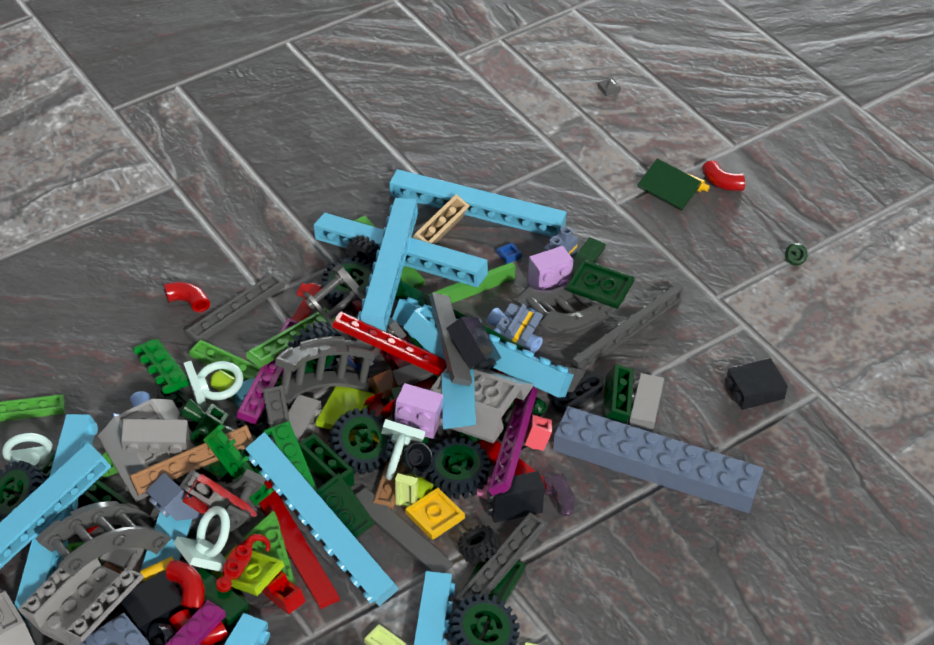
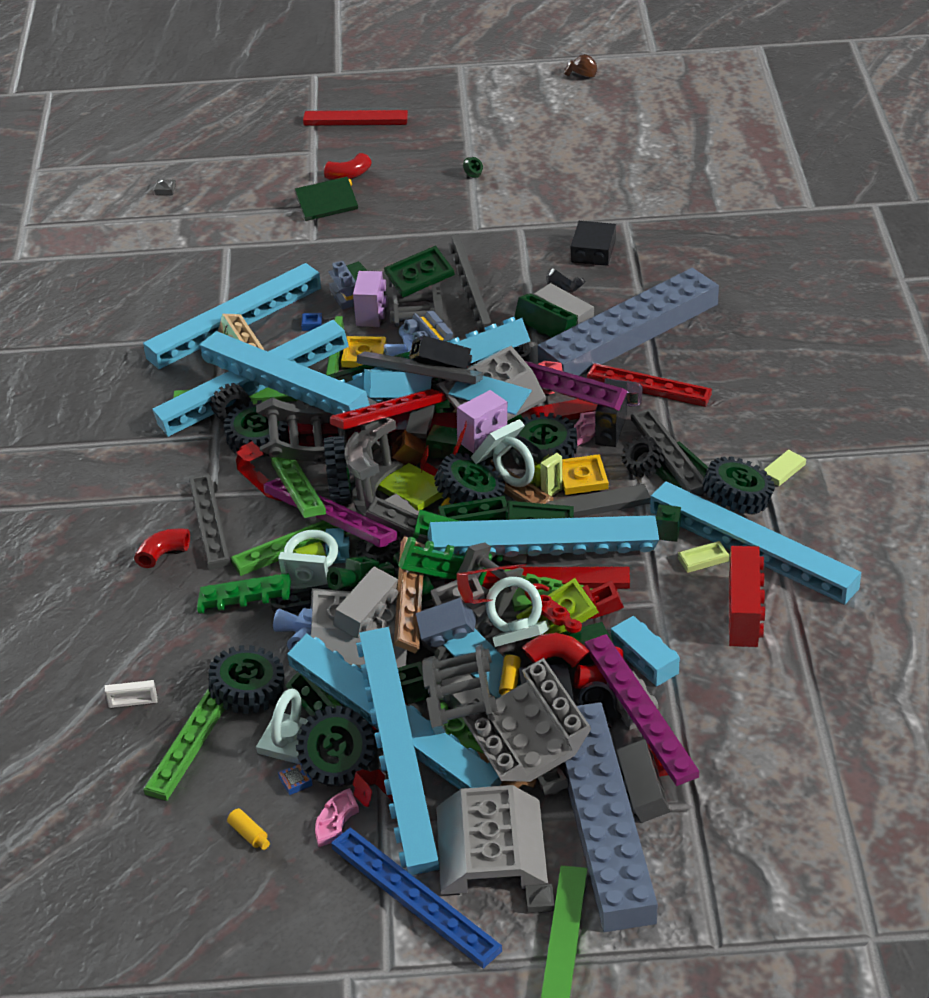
camera: 55 degrees left, 5 degrees down
(25, 355) = (131, 694): none -> white tile
(70, 399) = (246, 689): none -> black wheel
(406, 599) = (668, 522): none -> dark green brick
(488, 298) = (358, 345): none -> yellow plate
(592, 511) = (654, 385): none -> red tile
(678, 387) = (559, 280): none -> black piece
(804, 150) = (358, 117): none -> red tile

